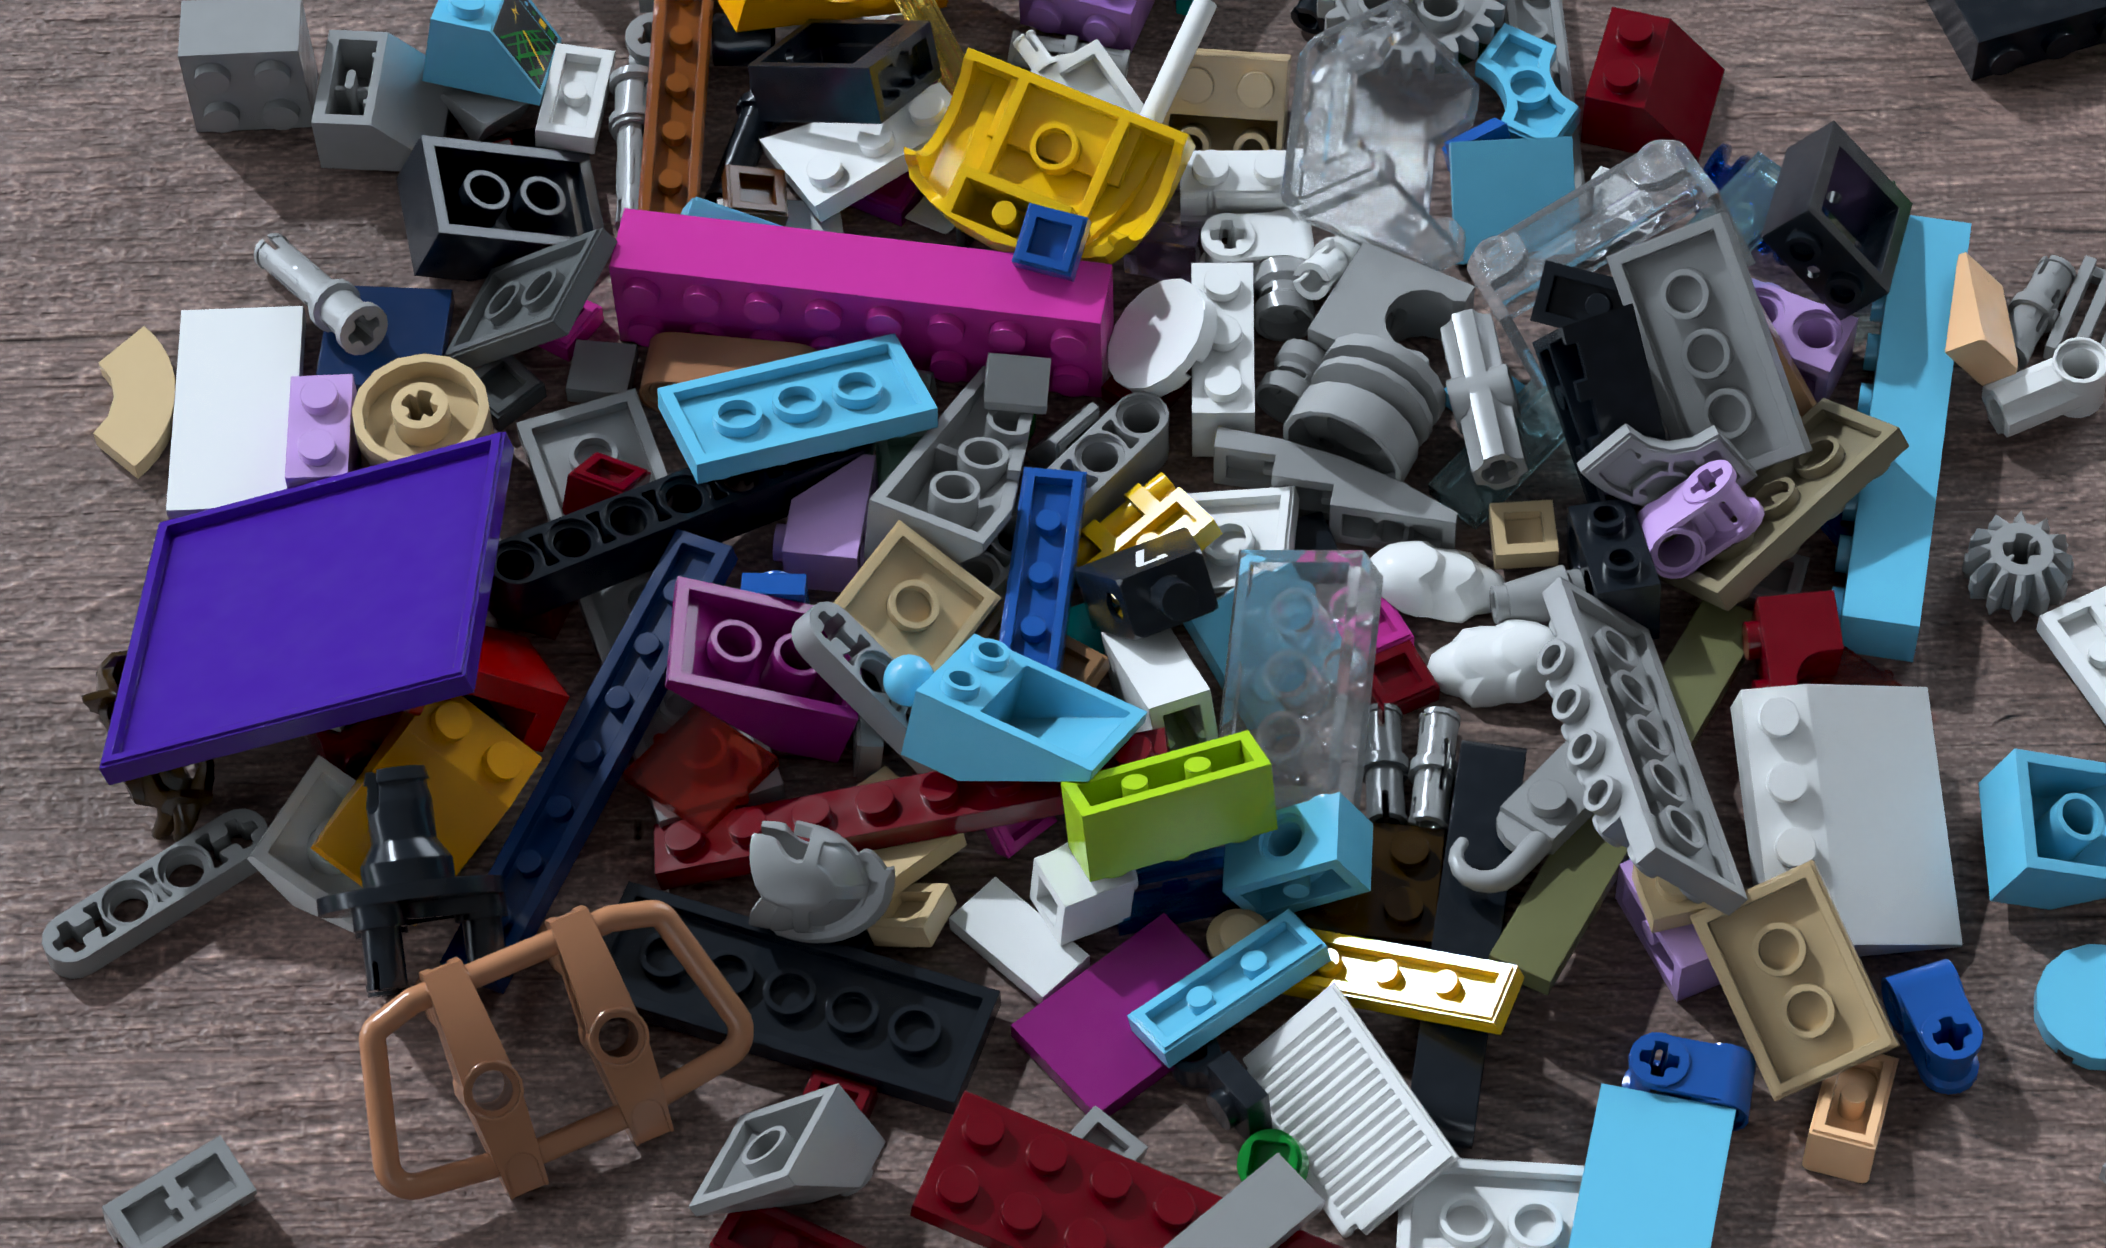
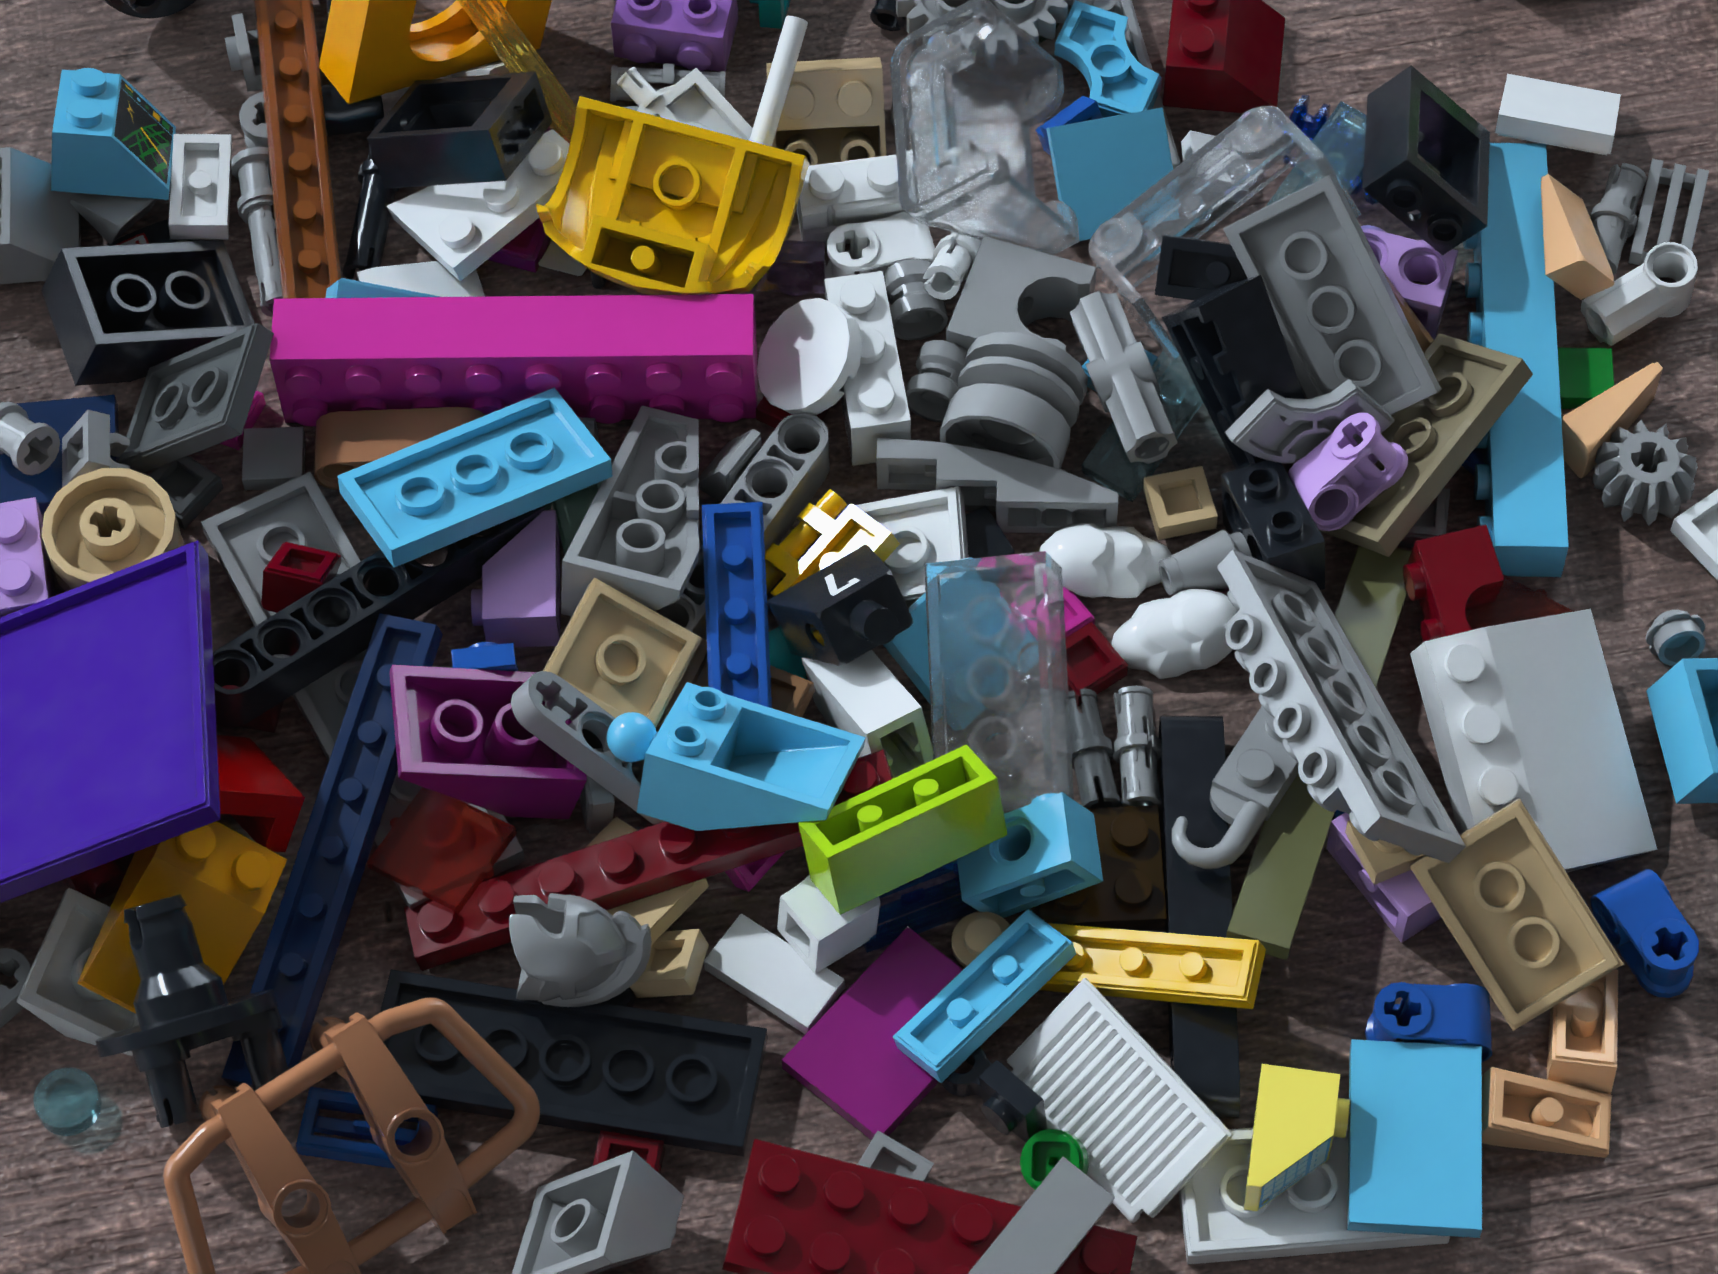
camera: 10 degrees left, 5 degrees up
(282, 967) = (67, 1101): none -> clear light blue tile
(418, 331) = (89, 446): none -> light grey tile
(550, 1051) = (342, 1149): none -> blue tile
(756, 192) = (394, 262): tile -> none
(1016, 383) = (679, 422): light grey slope -> none
(1051, 242) = (693, 281): blue tile -> none
(1521, 1163) = (1292, 1129): none -> light yellow slope
(1791, 1190) = (1544, 1115): none -> light nougat slope
(1972, 466) = (1584, 374): none -> green tile
(1975, 505) = (1598, 418): none -> light nougat slope
(1991, 197) = (1558, 114): none -> white tile
(2021, 729) = (1676, 636): none -> light grey plate

